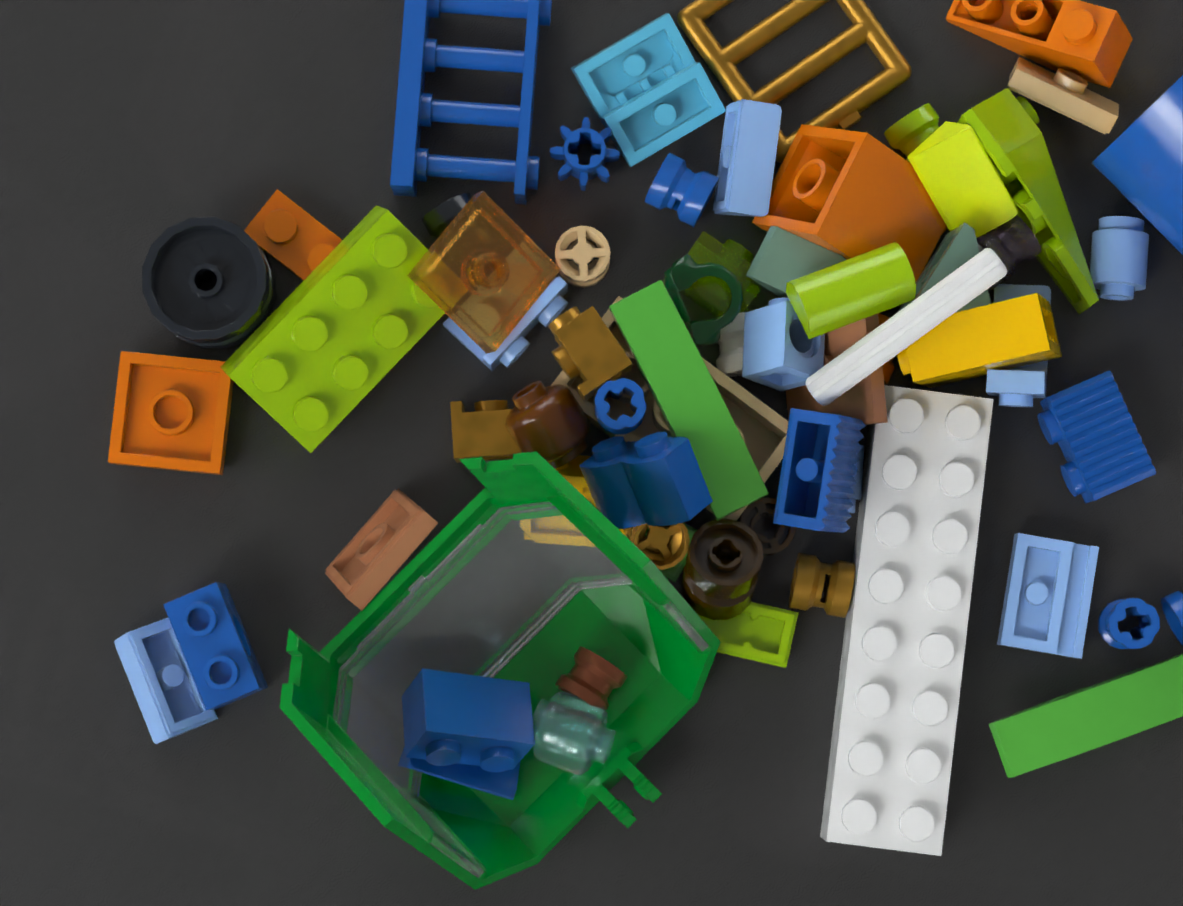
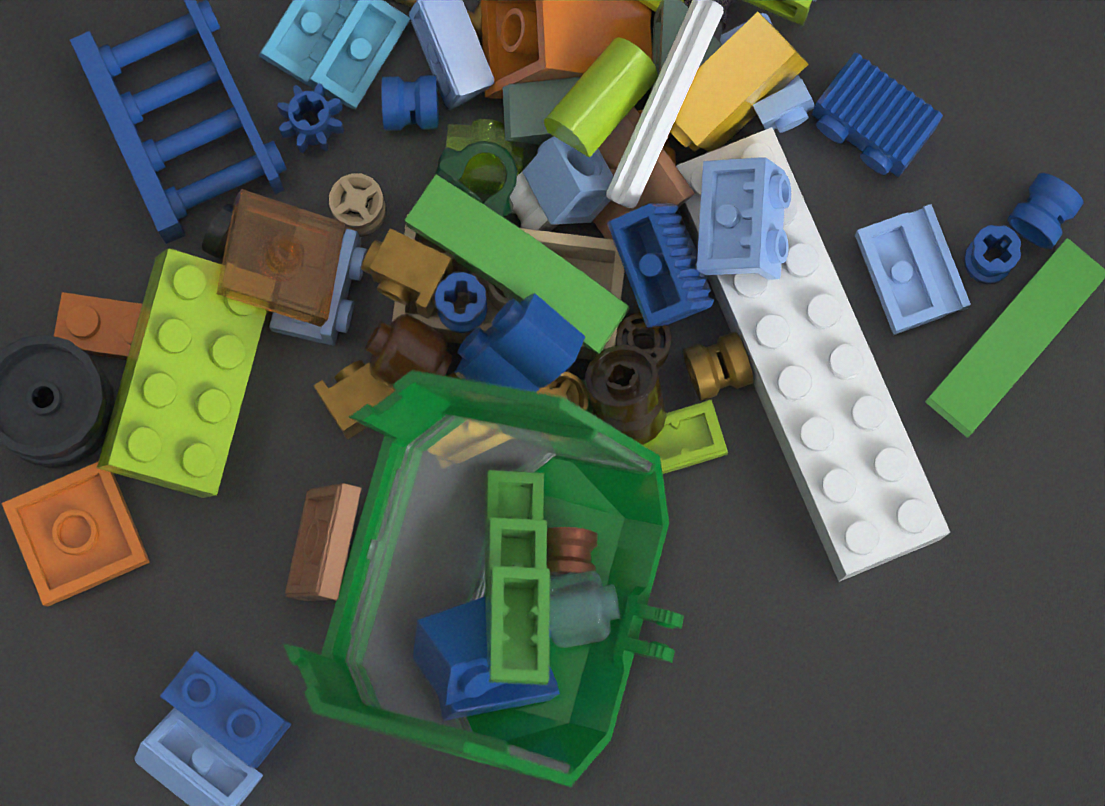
camera: 30 degrees left, 5 degrees down
(530, 680) = (516, 578): none -> bright green slope
(917, 471) = (743, 217): none -> light blue bracket

